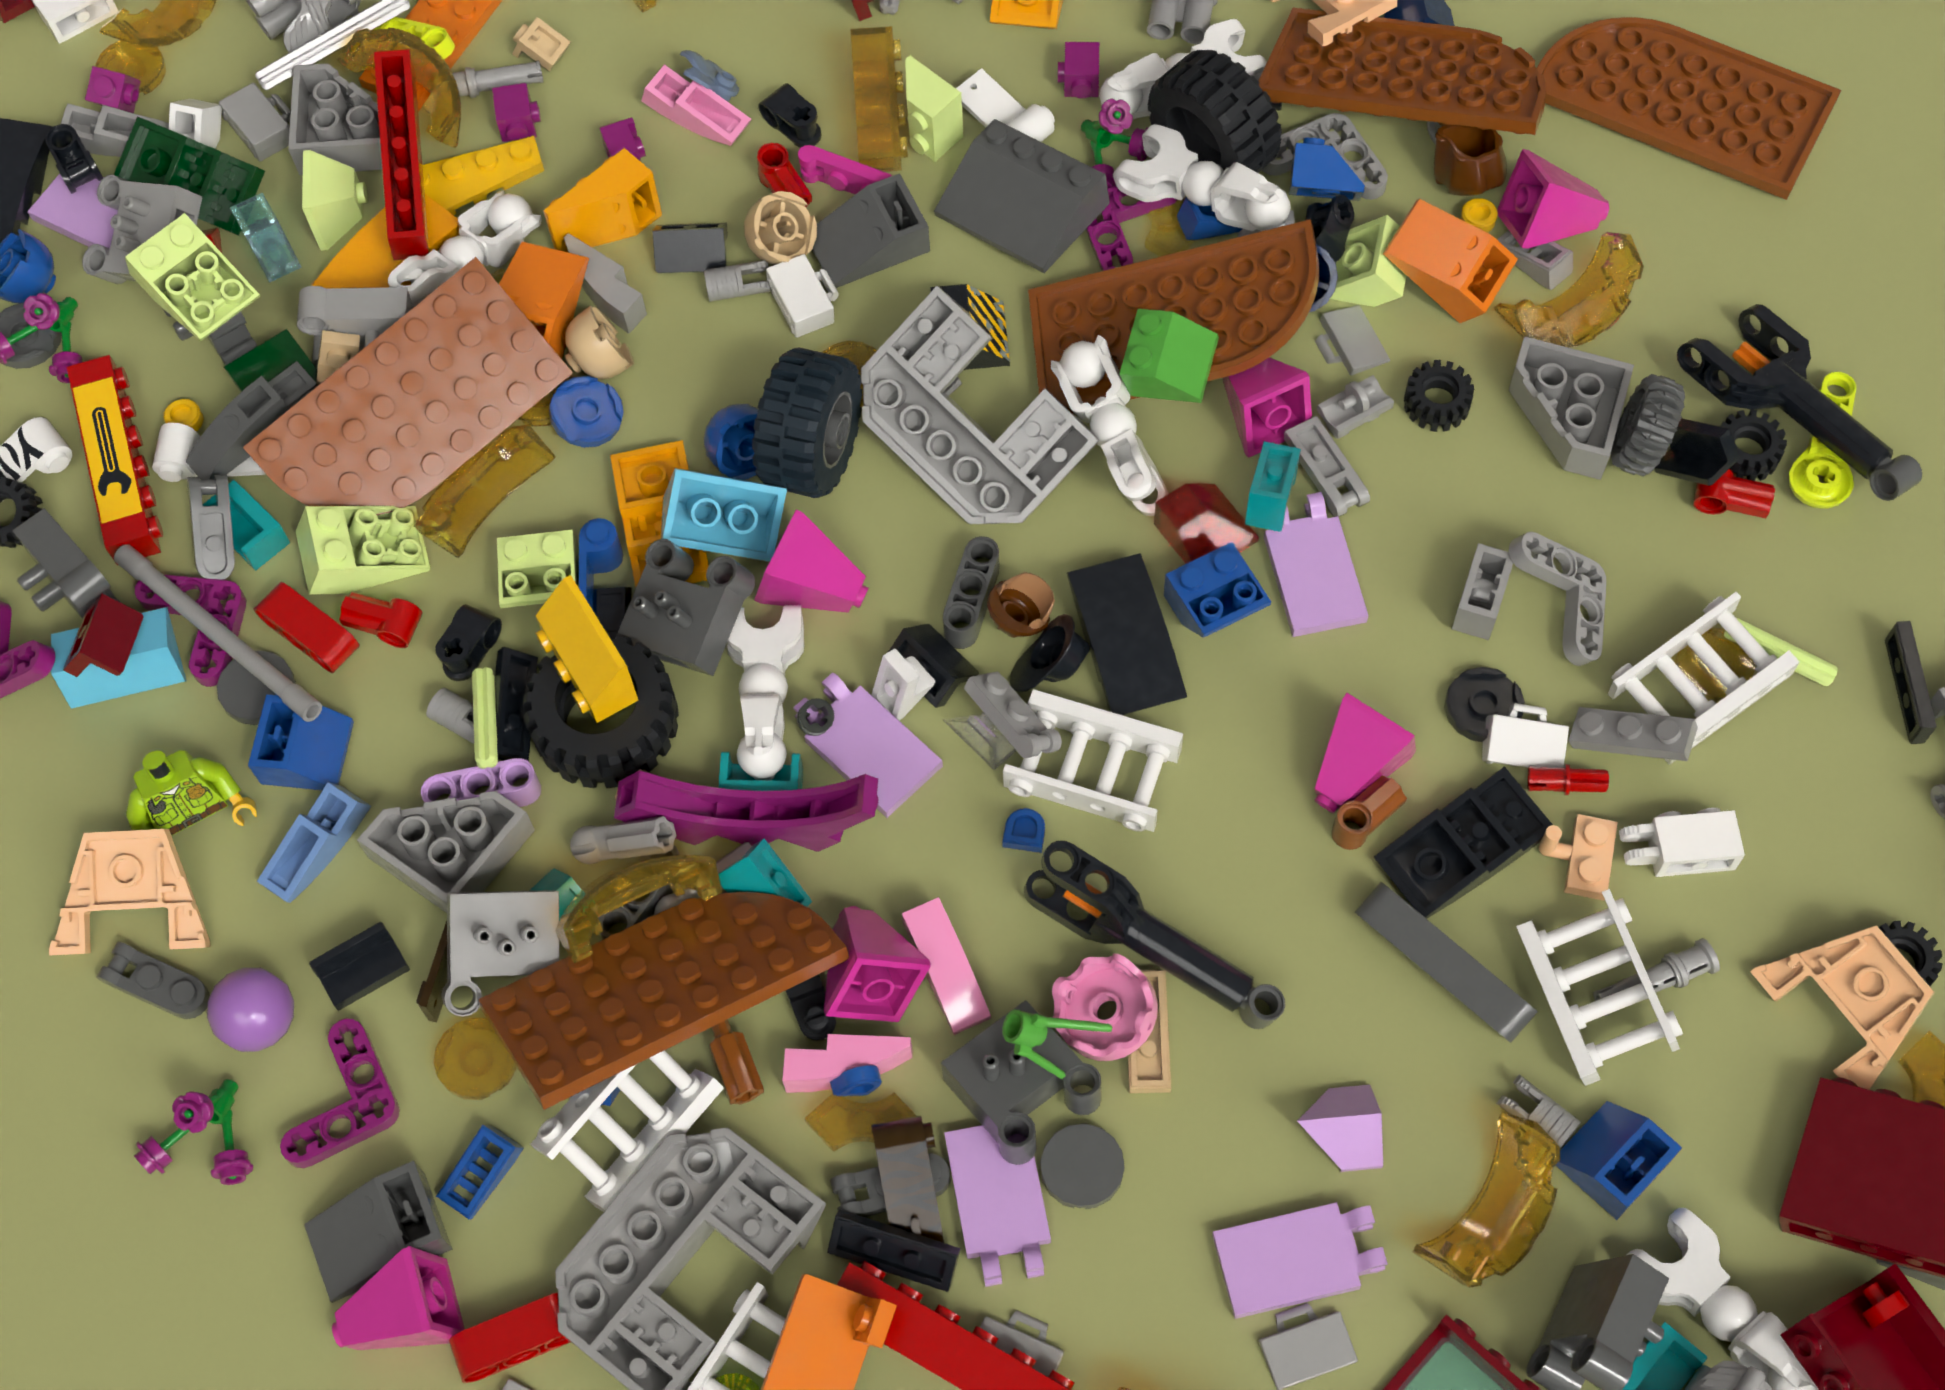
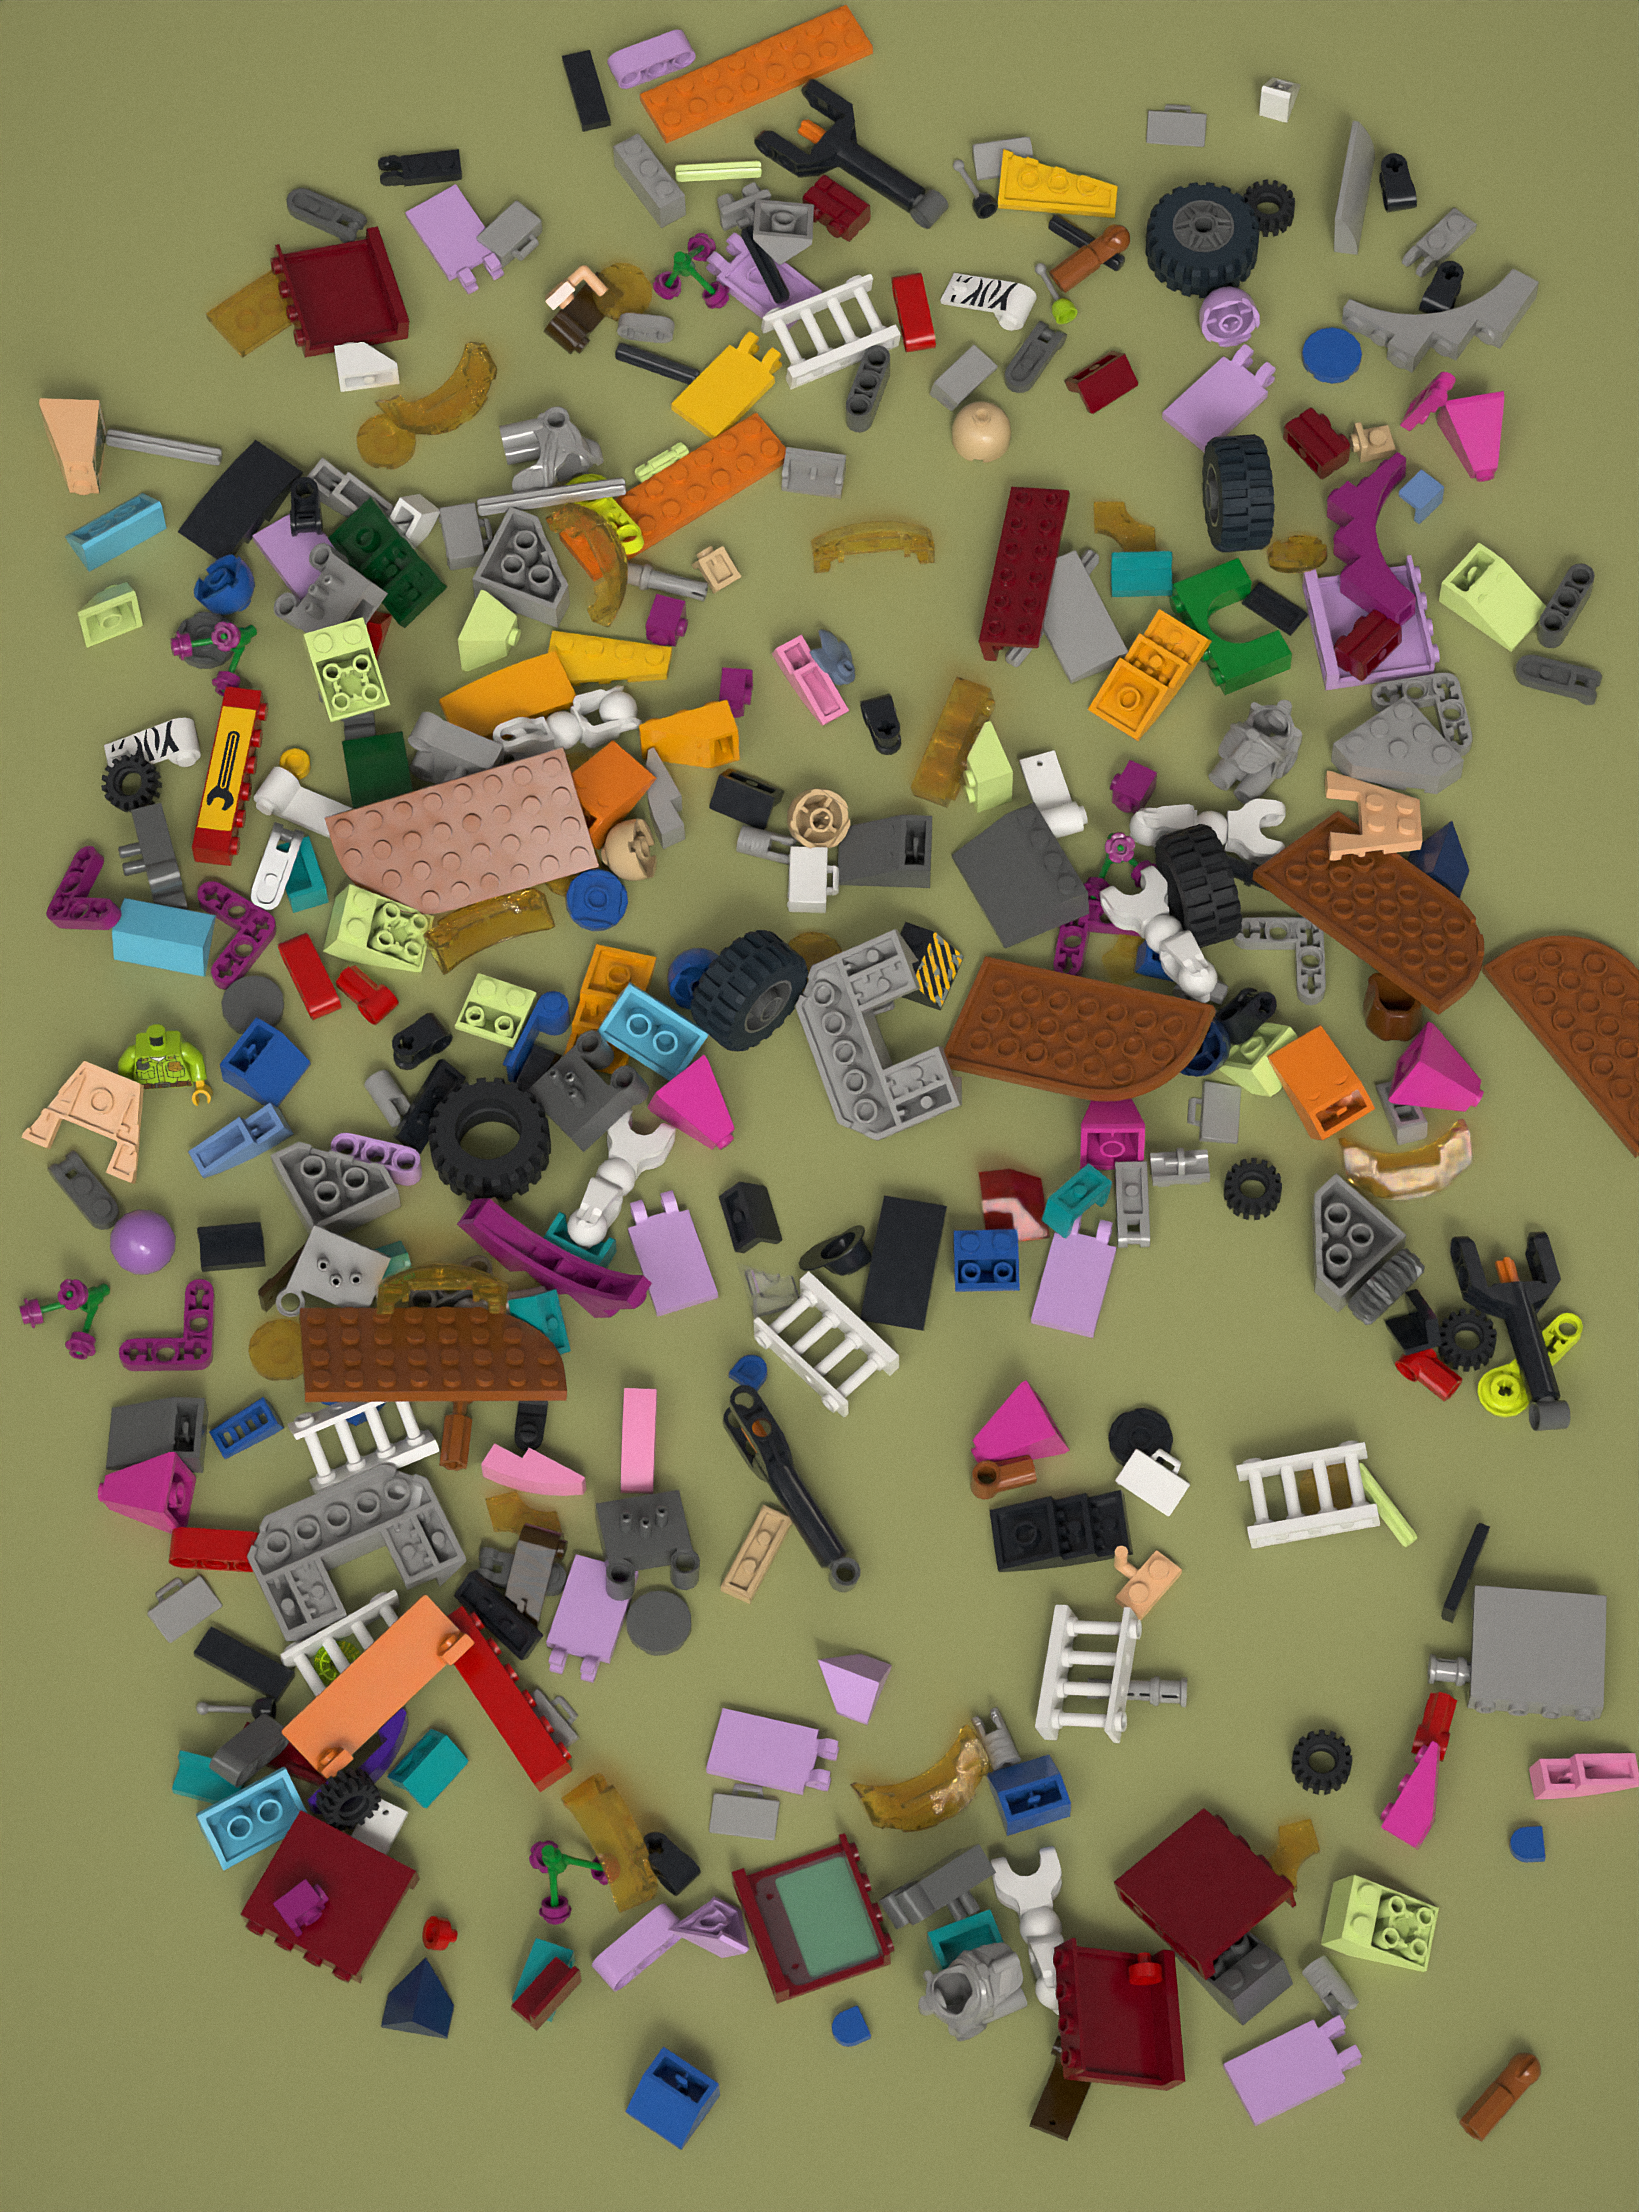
camera: 25 degrees right, 0 degrees up
(104, 637) = (161, 920): dark red panel -> none
(112, 89) = (362, 461): magenta brick -> none
(244, 418) = (340, 794): dark grey slope -> none
(265, 237) = (422, 643): clear light blue slope -> none
(290, 693) = (273, 1025): light grey piece -> none
(334, 352) = (427, 772): tan bracket -> none
(401, 154) = (554, 627): red brick -> none
(484, 718) = (403, 1106): yellowish green axle -> none
(584, 652) = (492, 1094): yellow slope -> none
(623, 840) = (456, 1243): light grey piece -> none
(780, 177) = (846, 775): red piece -> none
(816, 705) = (646, 1209): pearl dark grey bush -> none
(836, 170) = (891, 788): dark pink plate -> none
(857, 1081) = (533, 1490): blue tile -> none
(879, 973) = (585, 1420): dark pink slope -> none
(901, 683) = (717, 1222): white slope -> none
(971, 576) = (805, 1190): dark grey beam -> none
(1012, 715) = (782, 1282): light grey plate -> none
(1021, 605) = (835, 1204): reddish brown piece -> none
(1030, 1030) = (662, 1507): bright green plant -> none
(1092, 985) = (720, 1508): bright pink plate -> none
(1110, 420) = (980, 1097): white piece -> none
(1168, 357) = (1046, 1064): bright green slope -> none
(1322, 172) = (1265, 966): blue slope -> none
(1446, 962) = (993, 1606): dark grey beam -> none
(1480, 214) = (1379, 1057): yellow tile -> none
(1483, 592) = (1186, 1355): light grey brick -> none
(1567, 779) = (1164, 1522): red axle -> none
(1581, 637) = (1261, 1385): light grey beam -> none
(1633, 733) = (1229, 1510): light grey plate -> none
(1687, 843) = (1220, 1607): white hinge -> none
(1867, 984) = (1279, 1767): light nougat wing -> none

